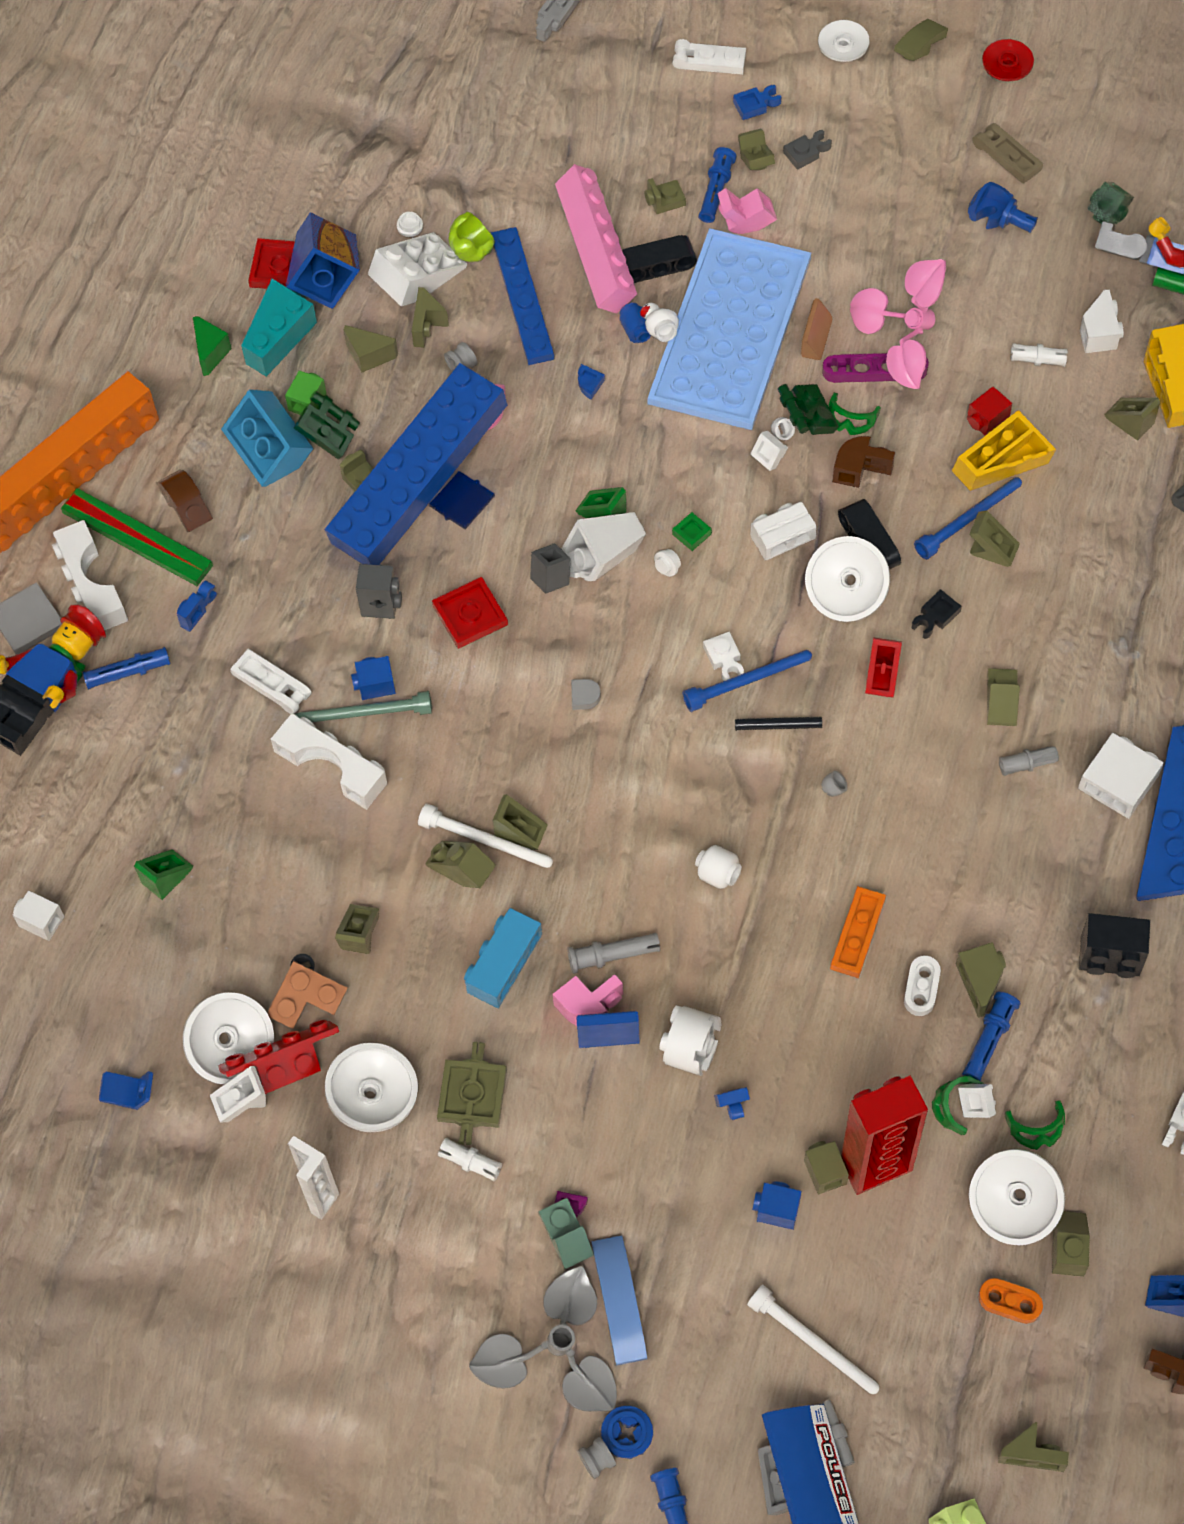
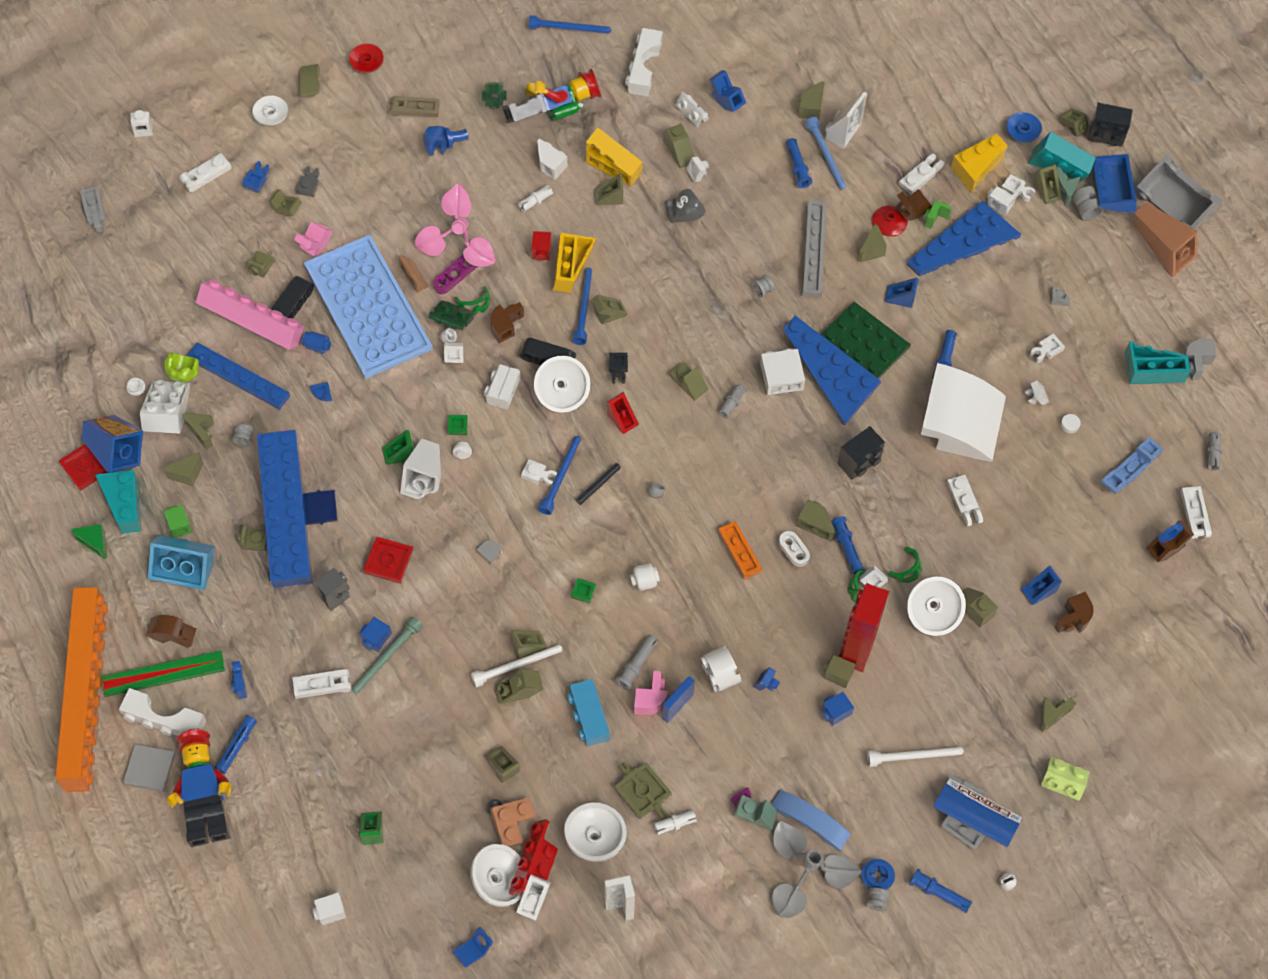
camera: 50 degrees left, 0 degrees up
(300, 742) = (373, 698): white arch -> none
(323, 430) = (210, 531): dark green plate -> none
(550, 568) = (408, 502): dark grey brick -> none
(637, 823) = (583, 590): none -> green plate
(660, 322) = (333, 331): white animal -> none
(721, 166) = (278, 230): blue pin -> none
(1010, 1300) = (976, 655): orange plate -> none

